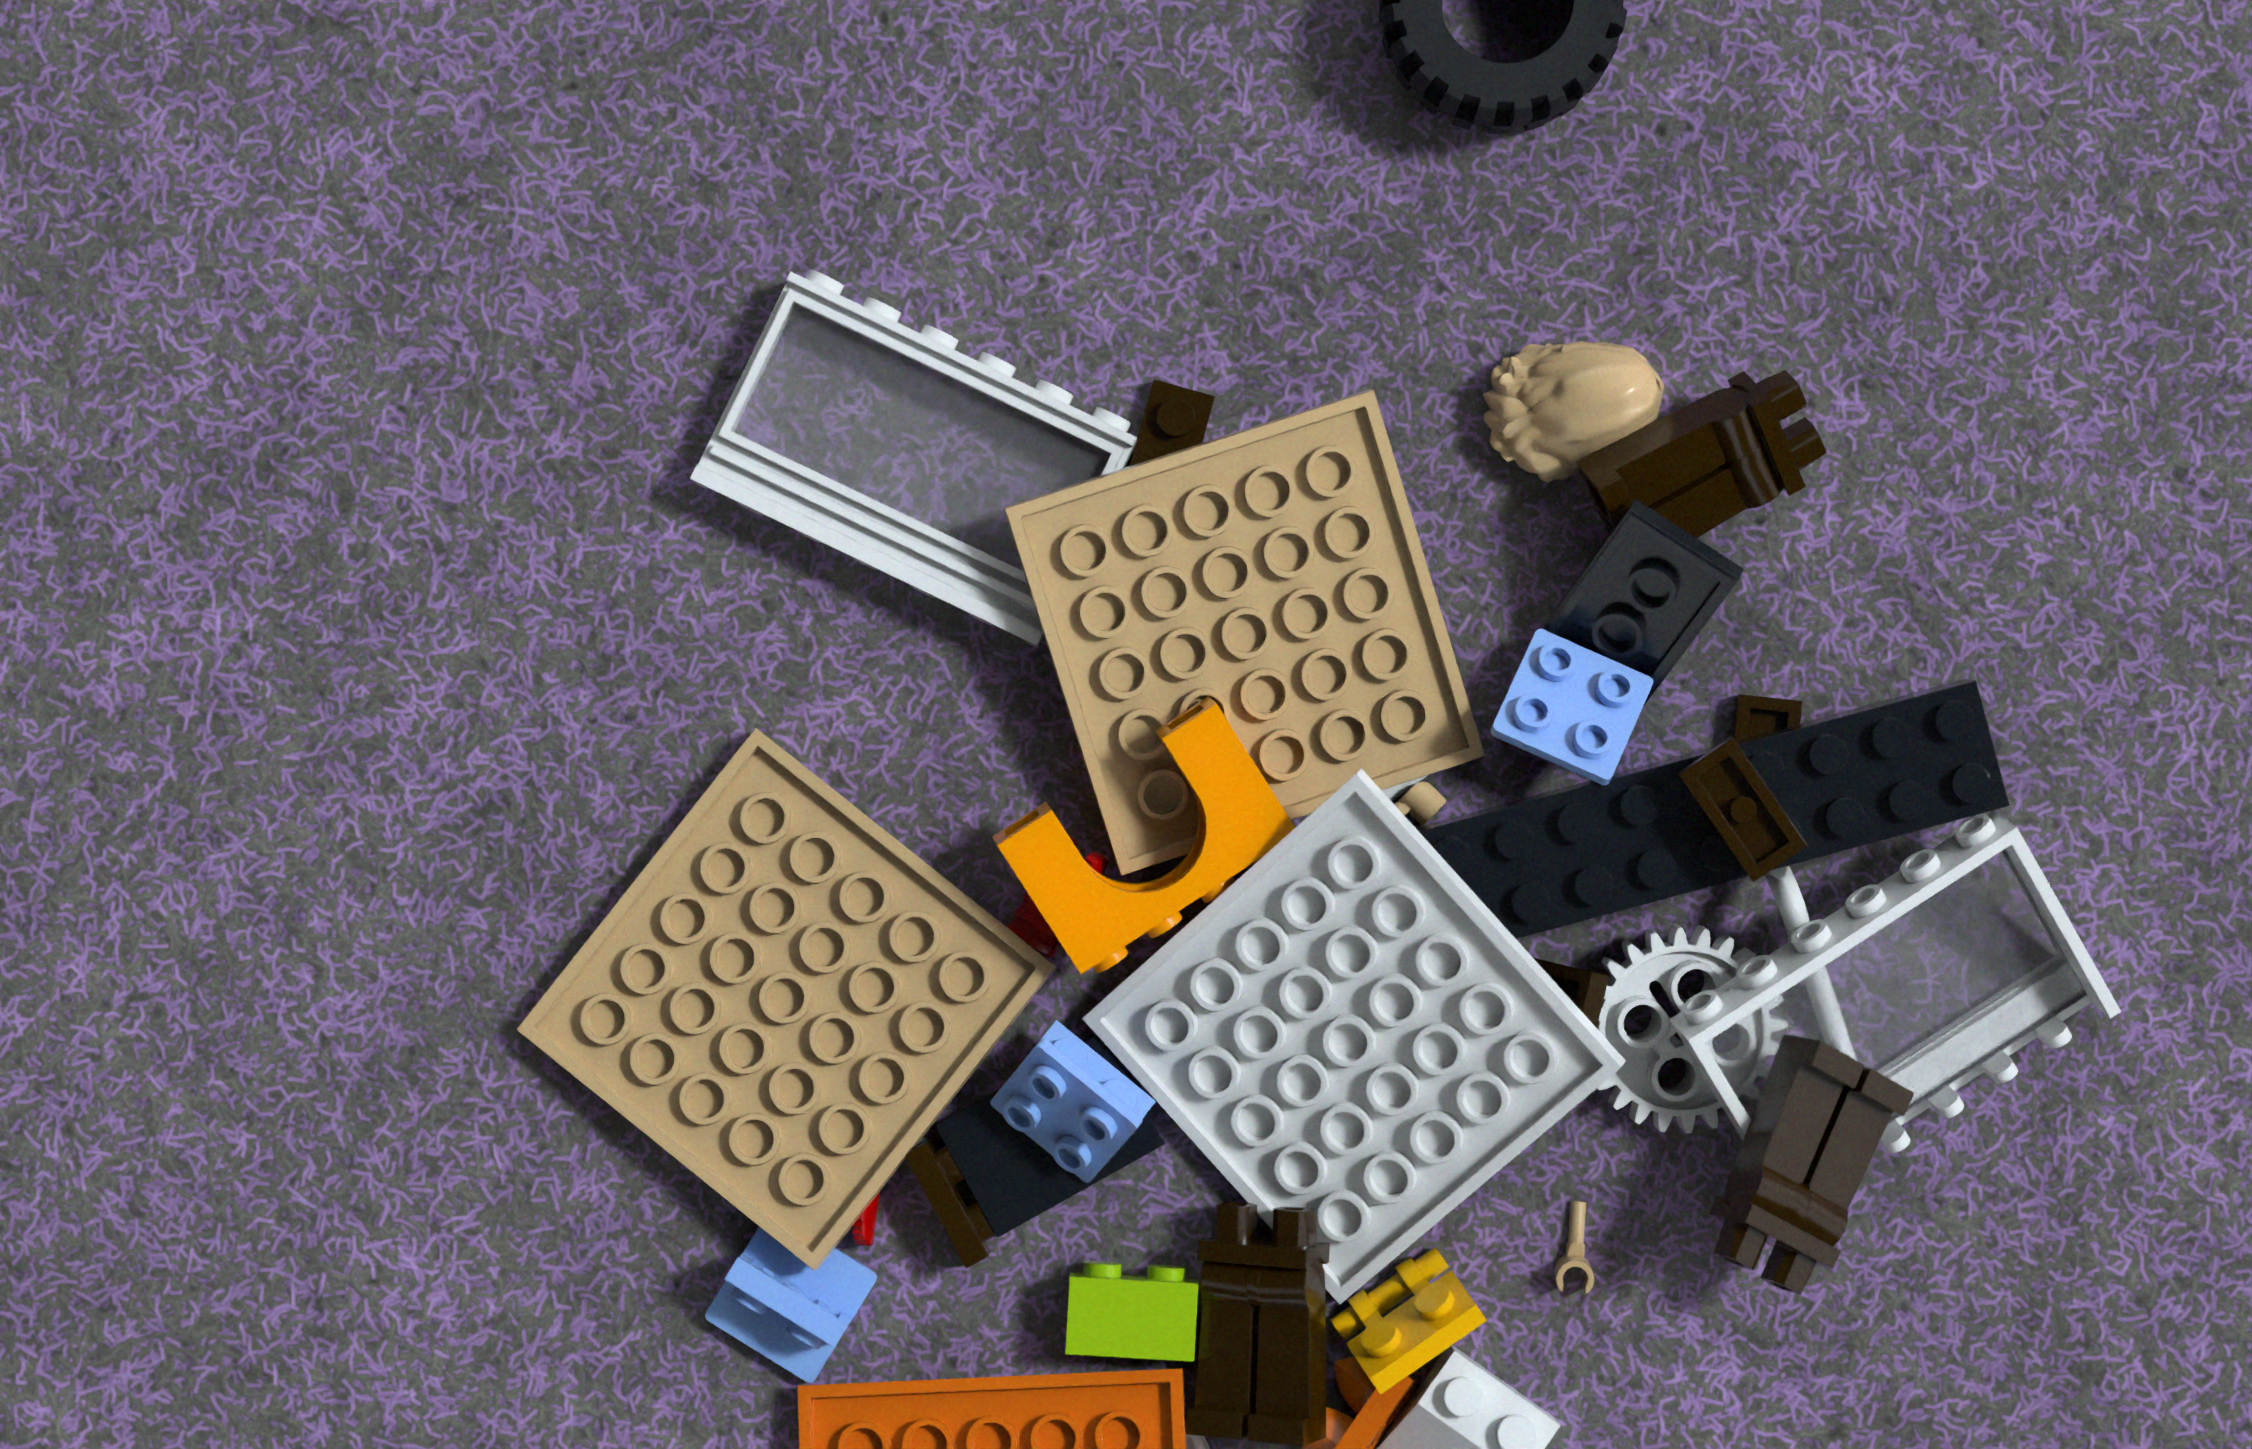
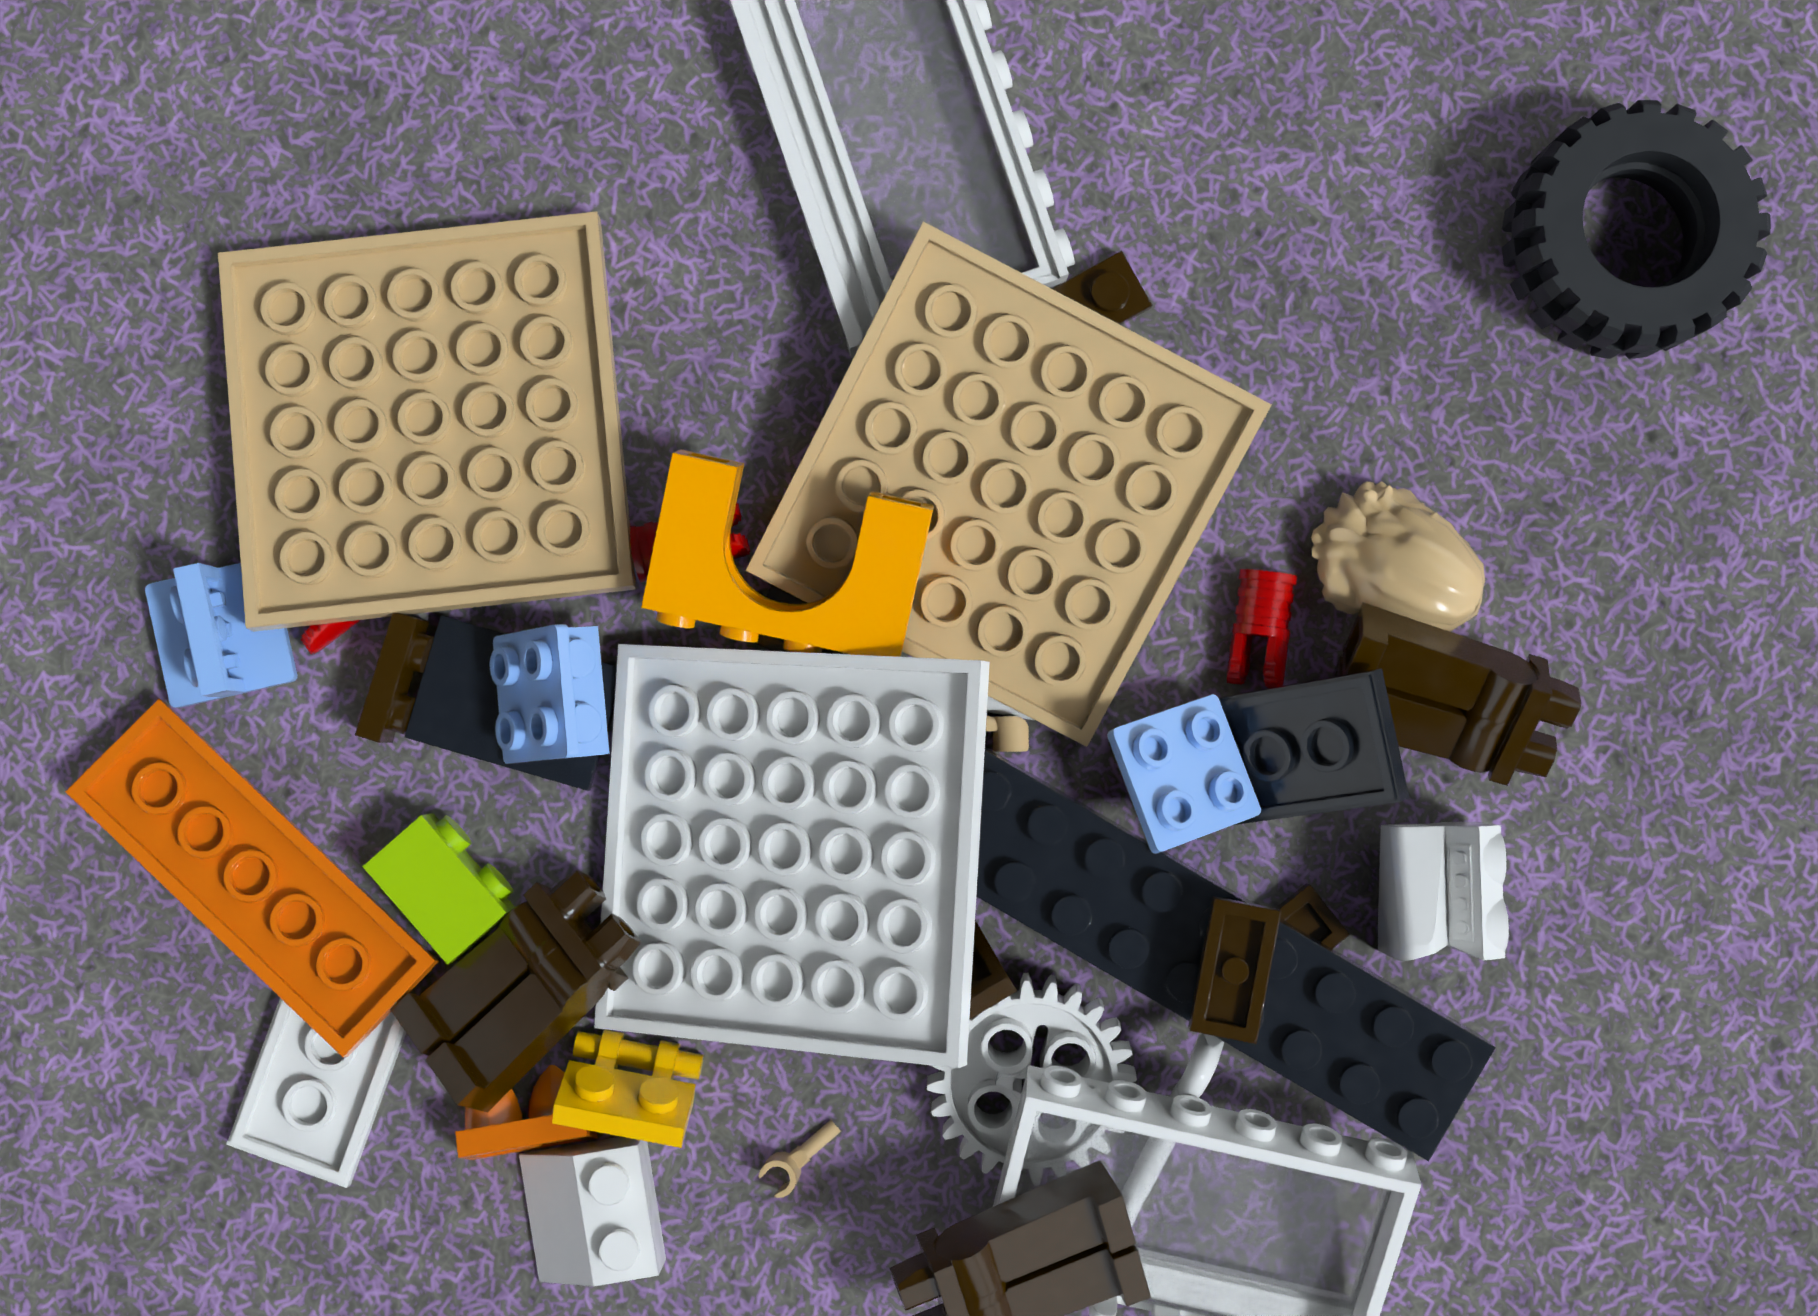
camera: 40 degrees right, 0 degrees up
(1512, 536) = (1262, 612): none -> red hinge
(1831, 606) = (1442, 890): none -> white piece

